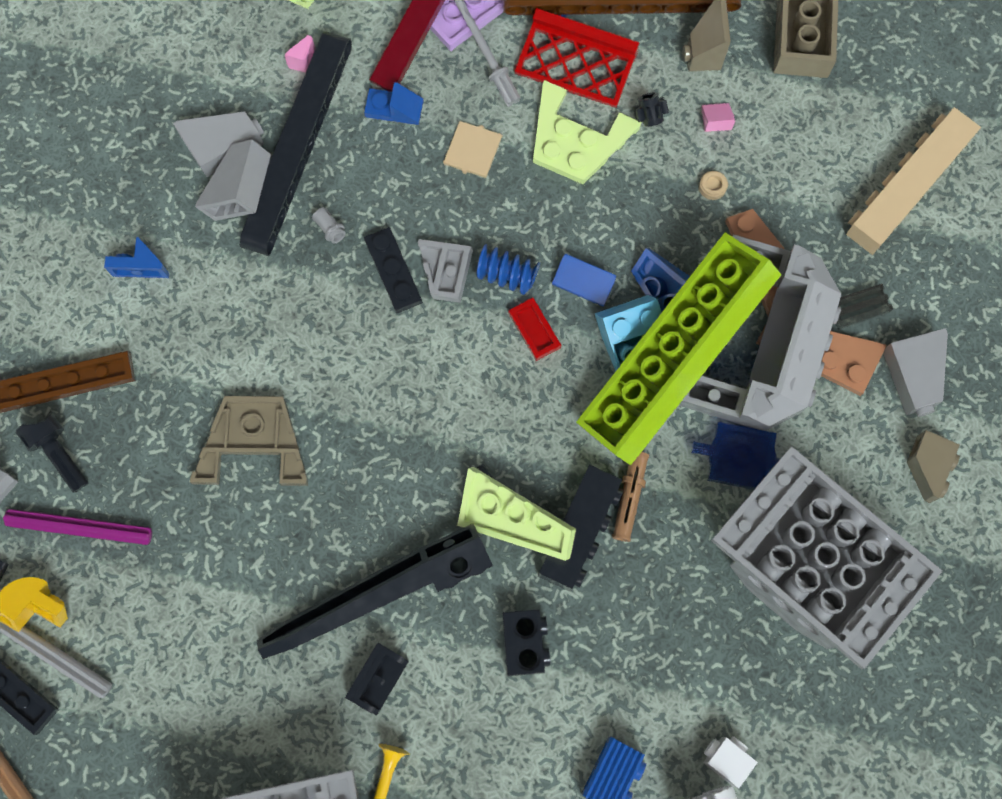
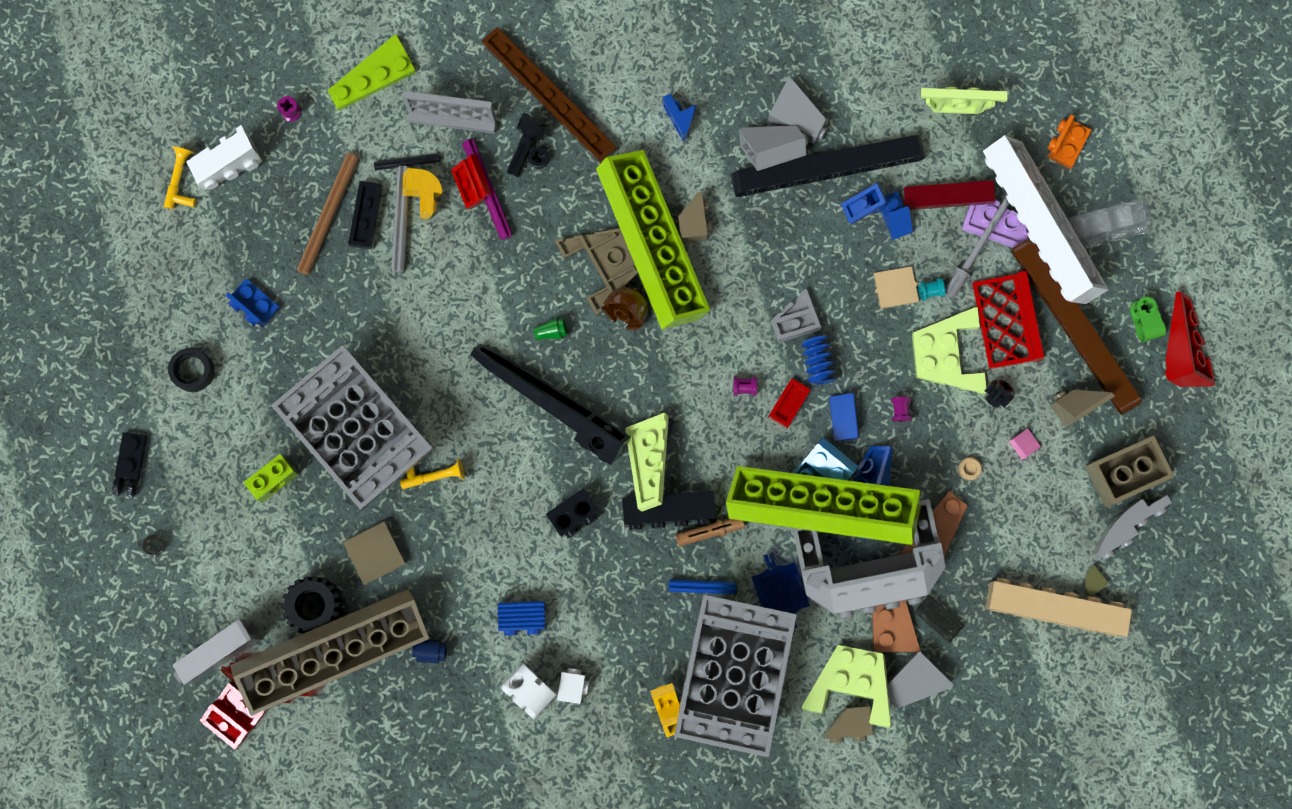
camera: 60 degrees right, 5 degrees up
(56, 539) = (471, 181): none -> red plate
(77, 437) = (536, 150): none -> black bush
(258, 368) = (652, 239): none -> lime brick
(268, 316) = (692, 220): none -> dark tan slope
(292, 544) = (551, 330): none -> green cone
(300, 55) = (893, 130): bright pink slope -> none
(319, 441) = (628, 306): none -> reddish brown cylinder
(333, 230) = (778, 228): light grey pin -> none
(363, 125) = (863, 204): none -> blue slope
(377, 679) = (498, 433): black hinge -> none
(393, 270) = (775, 284): black plate -> none
(487, 364) = (744, 385): none -> magenta bush
(497, 113) = (931, 289): none -> teal bush
(610, 216) = (901, 409): none -> magenta bush
(689, 541) = (702, 586): none -> blue axle
(815, 660) = (667, 707): none -> yellow brick
(858, 69) = (1122, 528): none -> light grey slope
(880, 425) = (855, 674): none -> yellowish green wing
(901, 131) = (1094, 581): none -> olive tile

